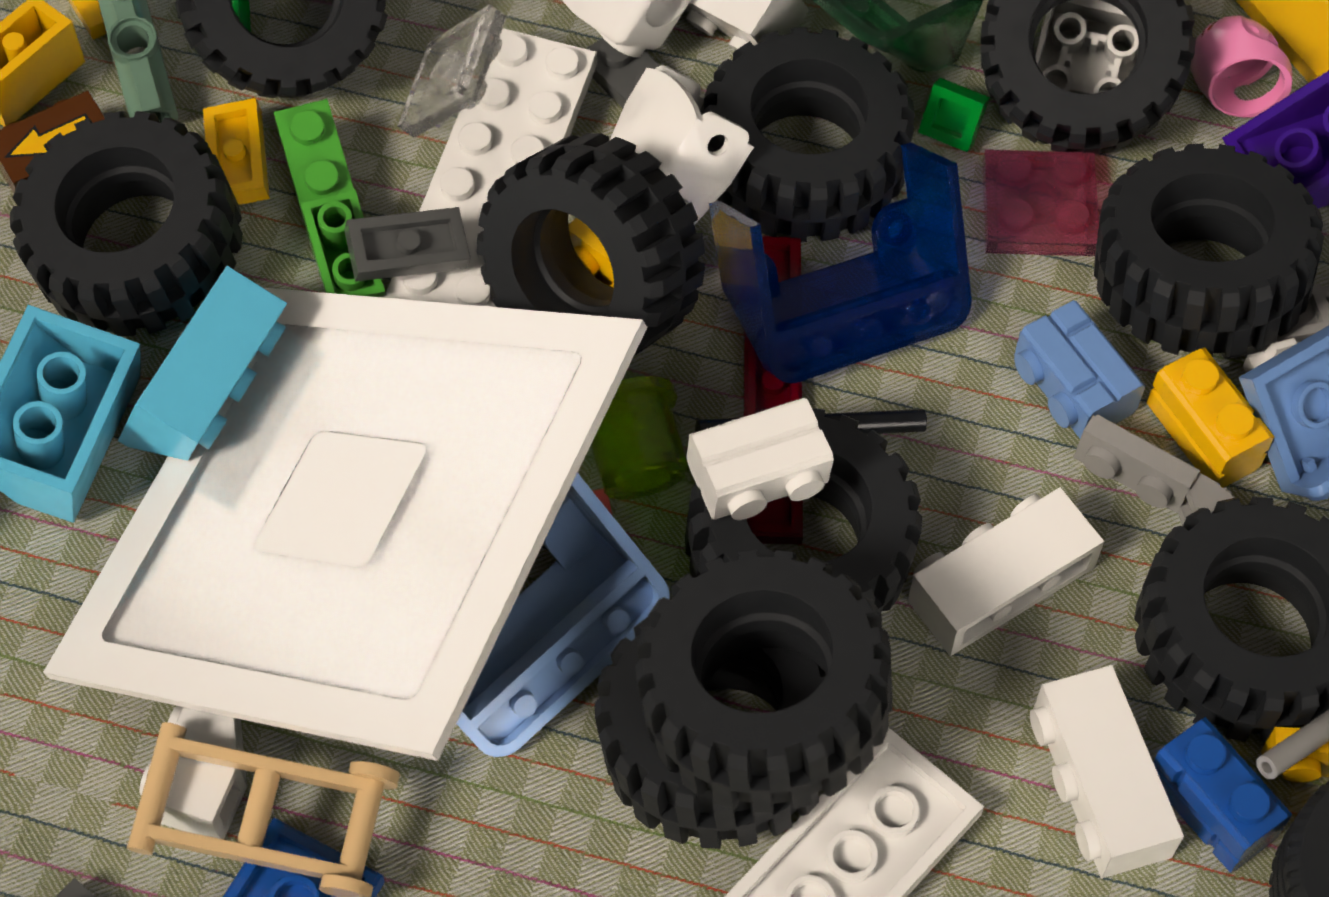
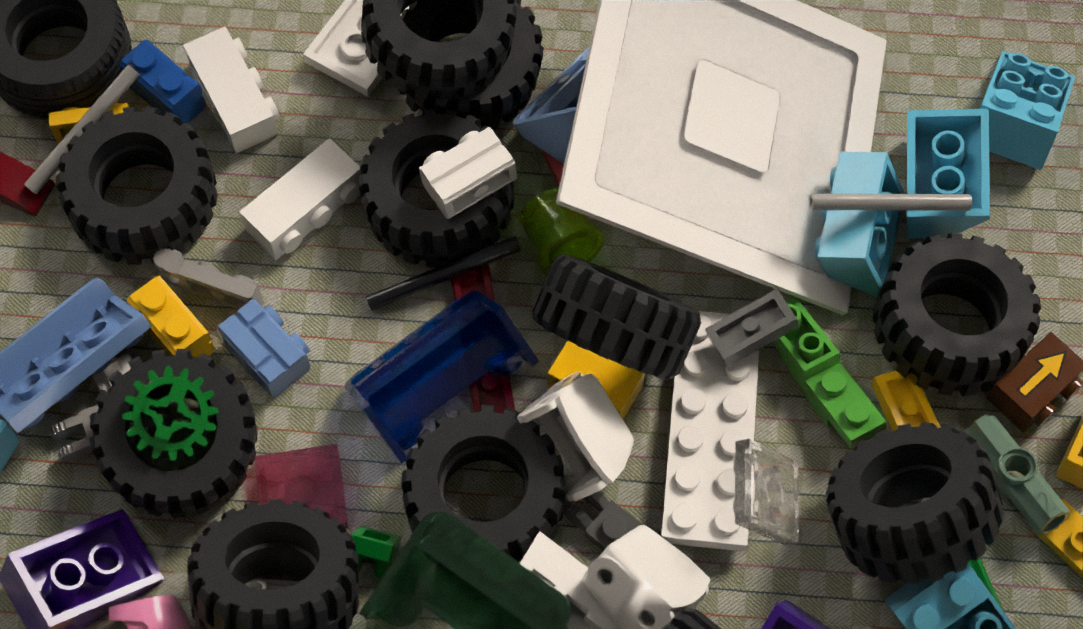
camera: 170 degrees right, 5 degrees up
(162, 325) = (896, 202): none -> light grey piece
(1214, 212) = (163, 433): none -> green gear

